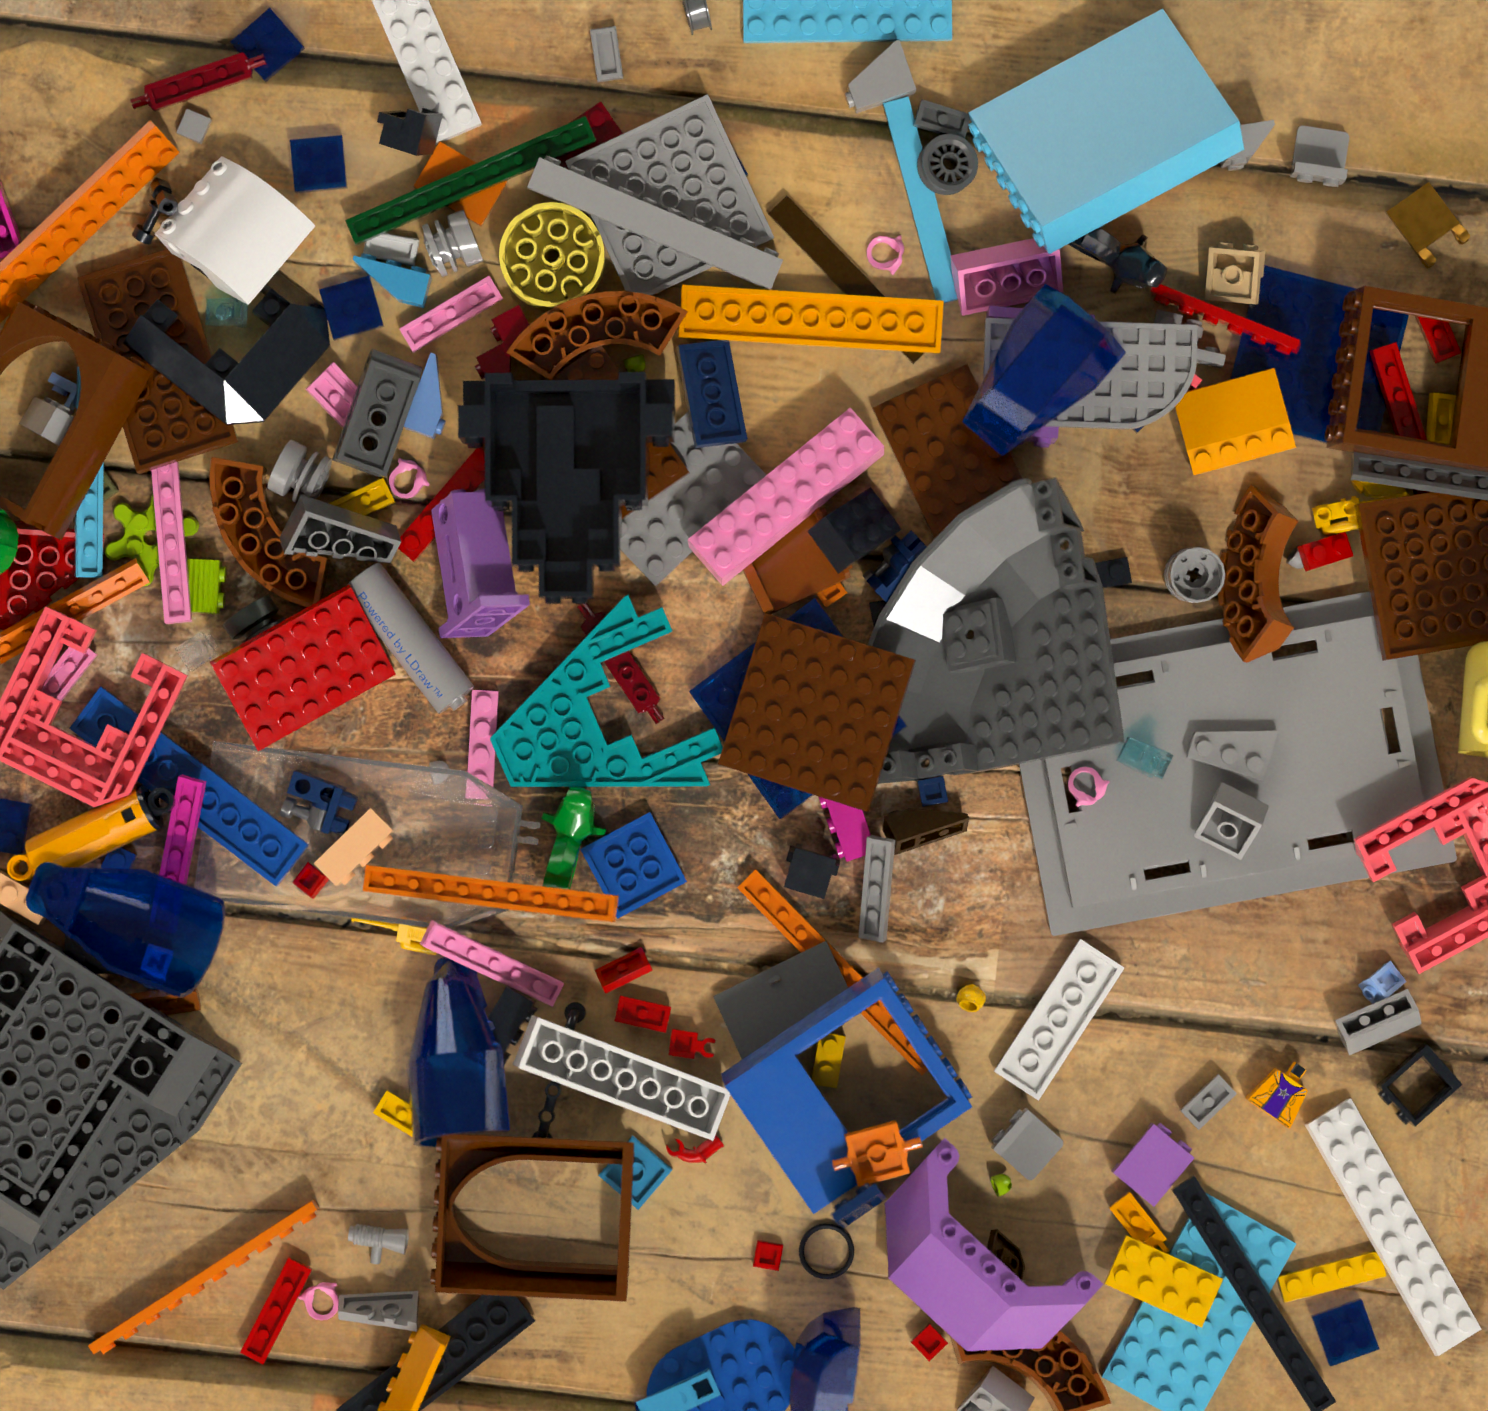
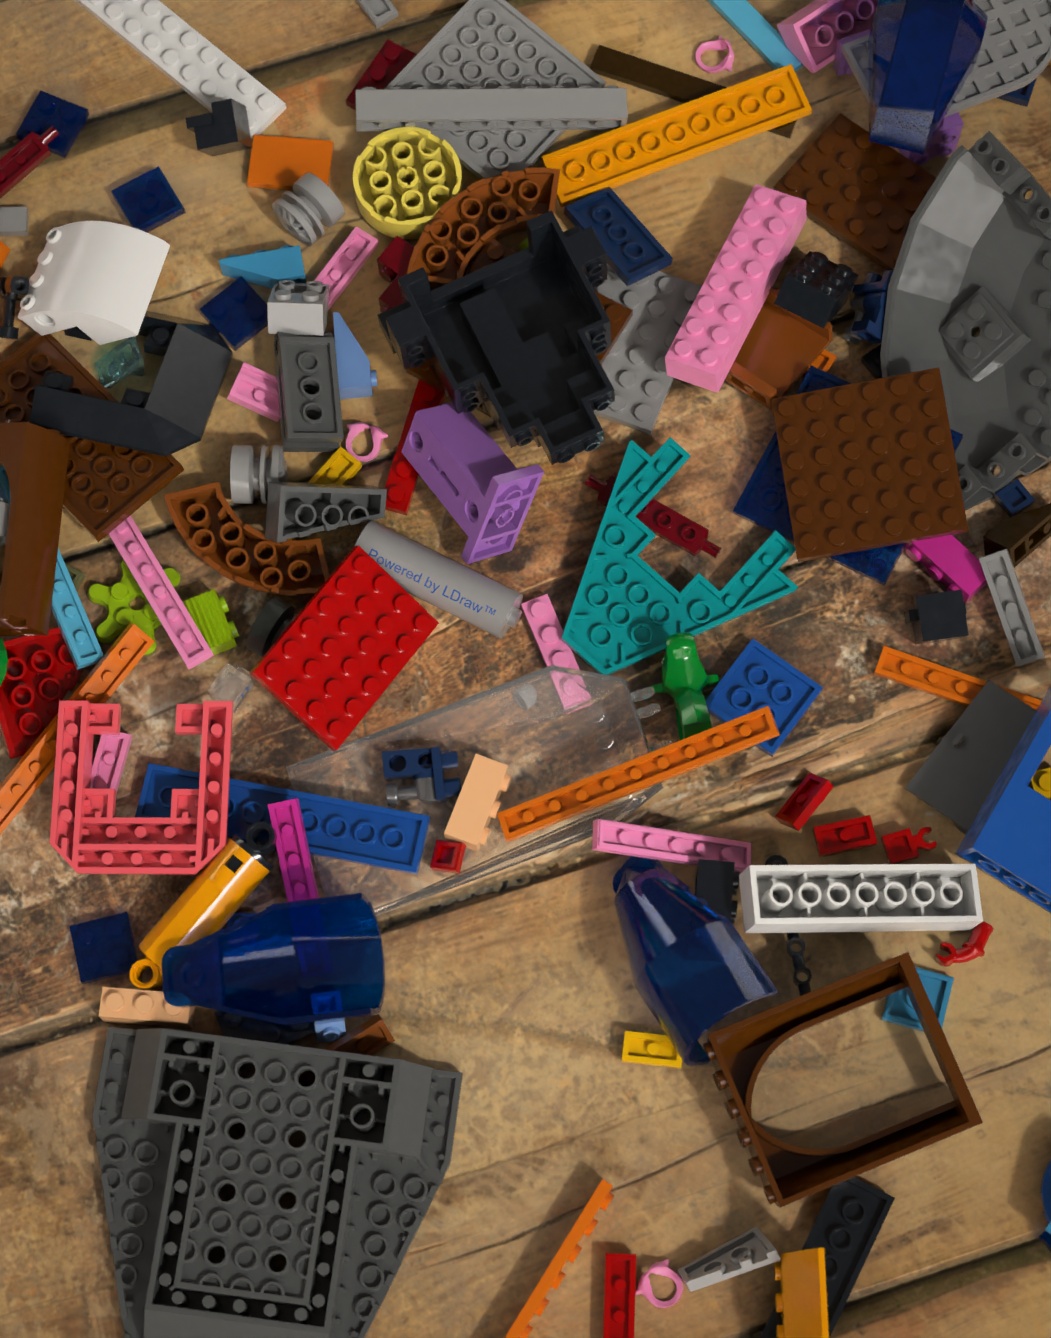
camera: 20 degrees left, 15 degrees down
(377, 1238) = (689, 1188): light grey piece -> none
(393, 248) = (250, 242): white tile -> none
(402, 335) = (298, 308): none -> light grey slope
(407, 935) = (570, 861): yellow piece -> none
(469, 181) = (295, 154): dark green plate -> none

